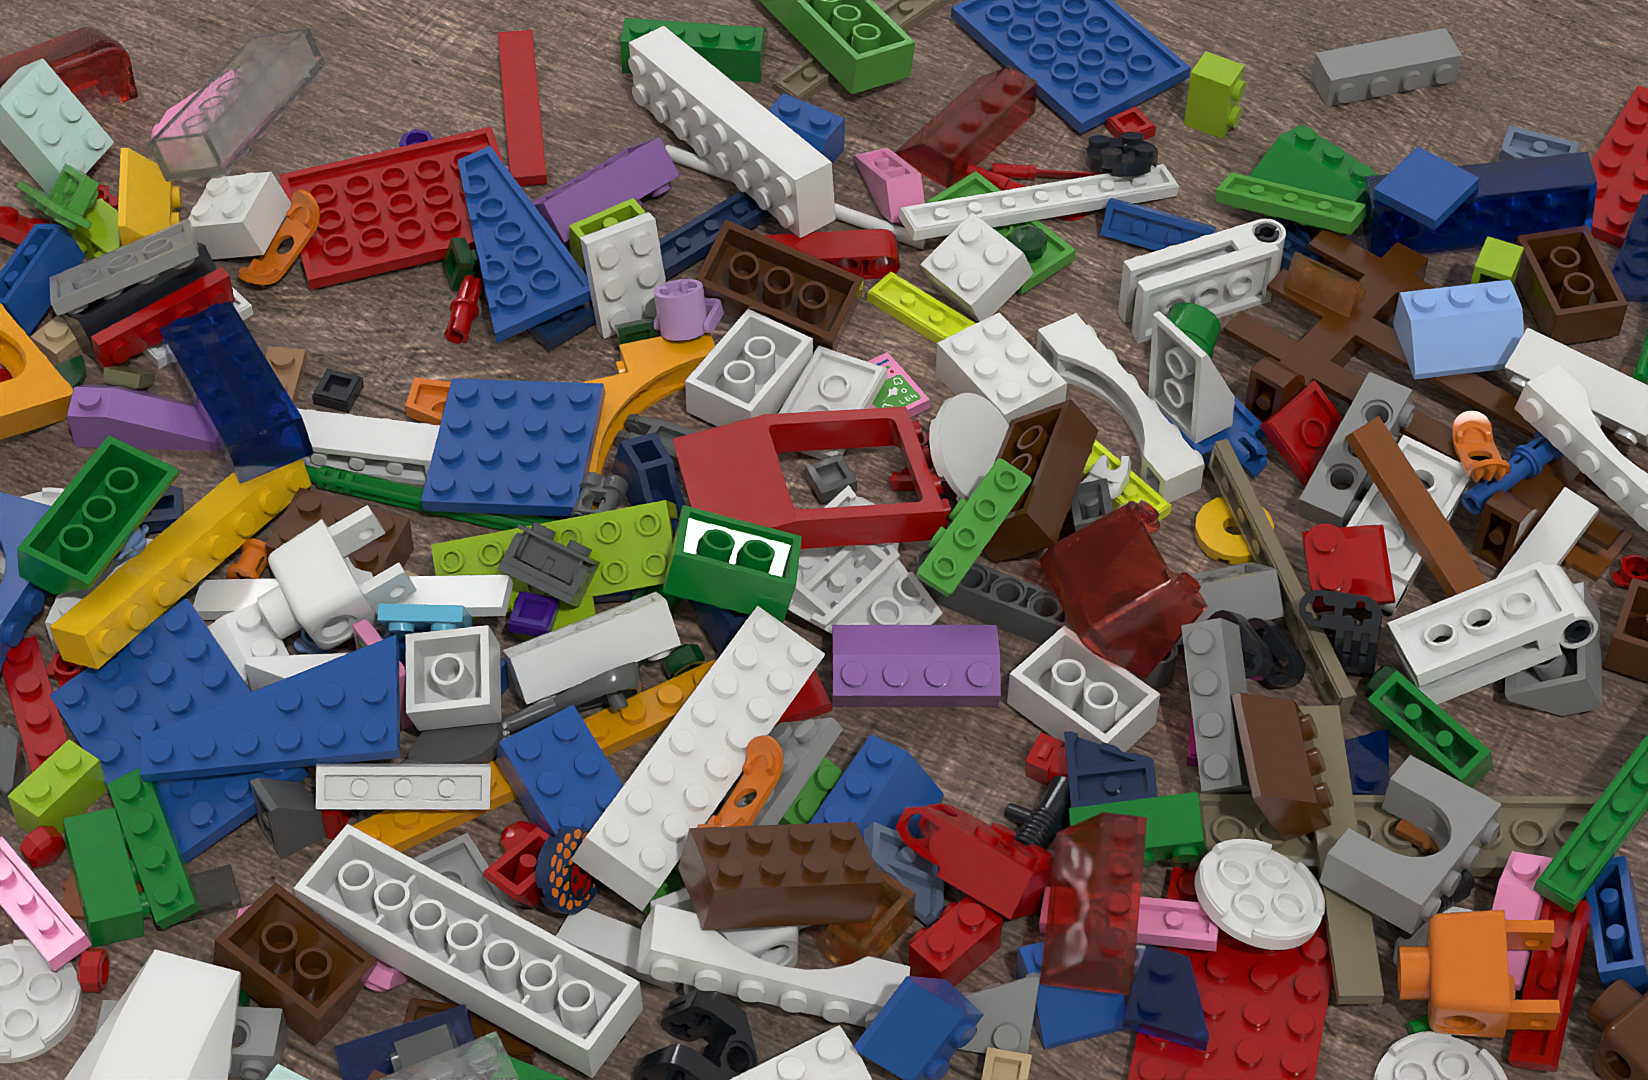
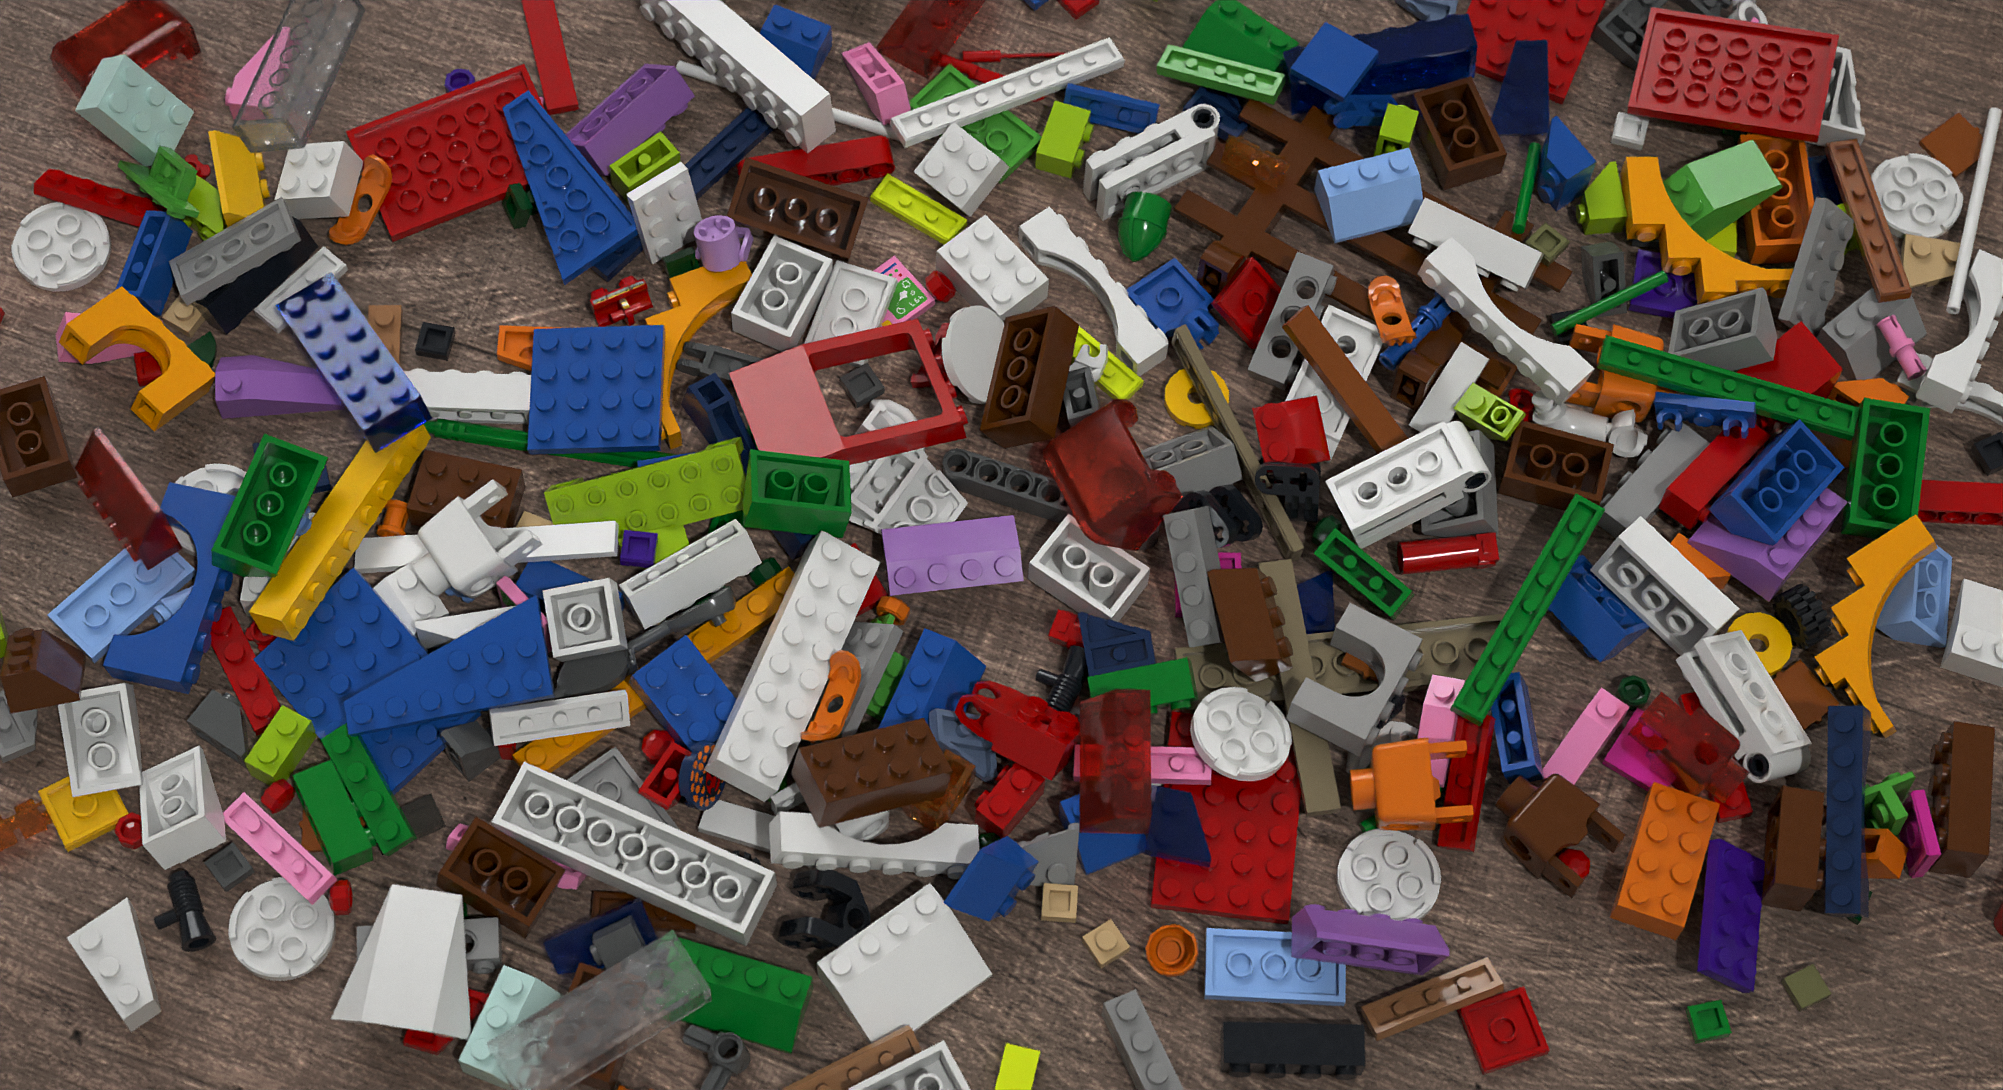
camera: 10 degrees left, 15 degrees up
(128, 377) = (255, 349): olive tile -> none
(142, 330) = (287, 282): red plate -> none
(420, 618) = (541, 573): medium azure plate -> none
(464, 310) = (529, 250): red axle -> none
(549, 564) = (646, 507): dark grey hinge -> none
(567, 364) = (621, 303): none -> red hips
(599, 489) = (678, 426): dark grey piece -> none
(840, 712) = (894, 606): none -> orange tile
(936, 386) = (940, 286): none -> red tile
(972, 527) = (986, 436): bright green bracket -> none
(1030, 241) = (1002, 137): dark green tile -> none
(1099, 255) = (1063, 140): none -> lime brick
(1124, 155) = (1072, 34): black plate -> none
(1187, 383) = (1148, 276): white slope -> none
(1446, 249) = (1359, 110): none -> blue hinge
(1538, 724) = (1448, 553): none -> red piece
(1600, 568) = (1488, 413): none -> lime slope

